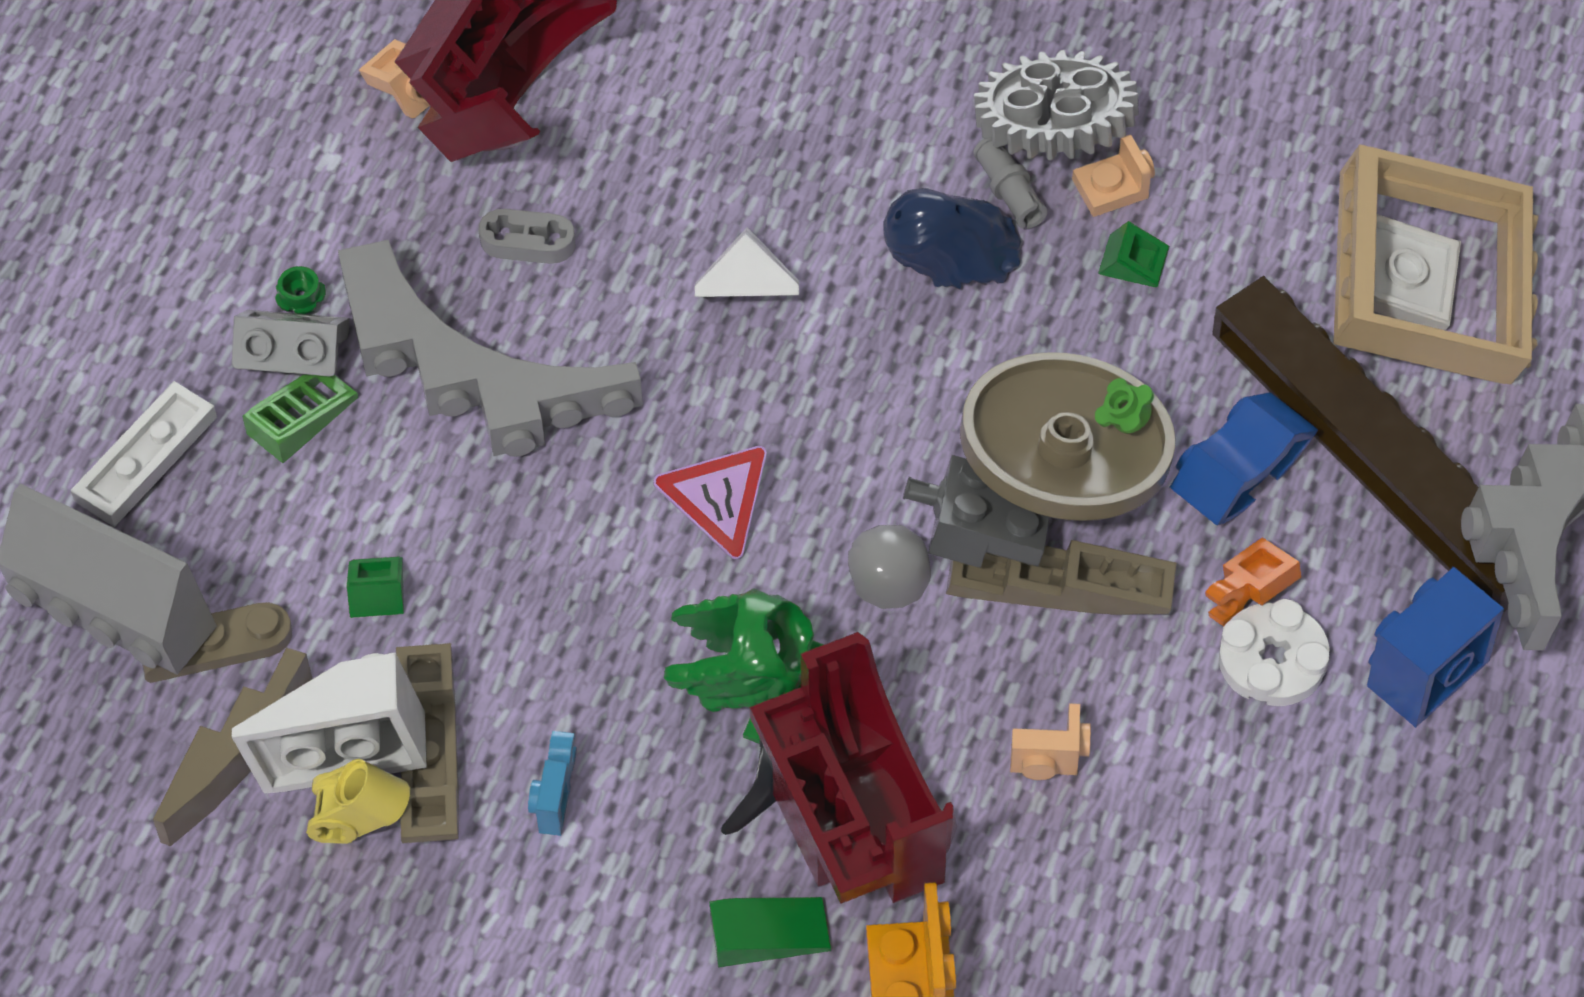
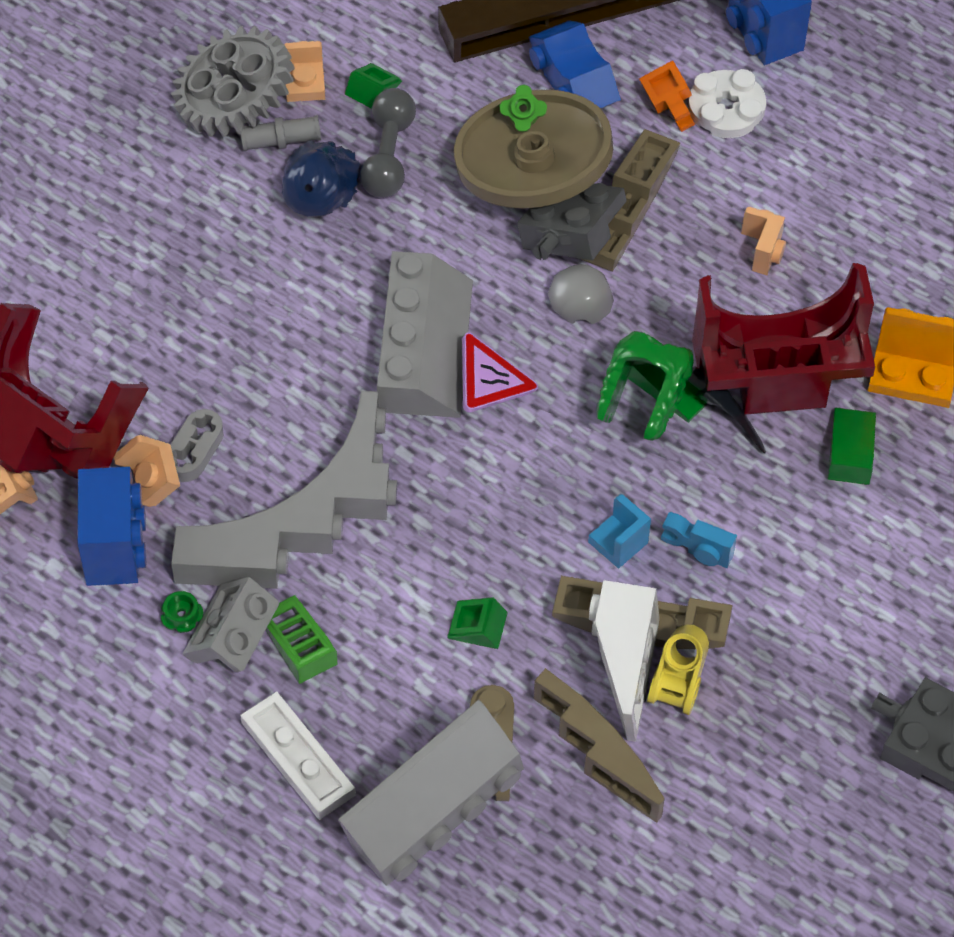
camera: 75 degrees left, 0 degrees up
(367, 177) = (110, 526): none -> blue brick
(466, 205) = (152, 467): none -> light nougat bracket
(537, 697) = (622, 533): none -> dark azure panel
(747, 270) = (292, 311): white slope -> none
(788, 397) = (423, 336): none -> light grey slope
(985, 299) = (382, 172): none -> dark grey piece

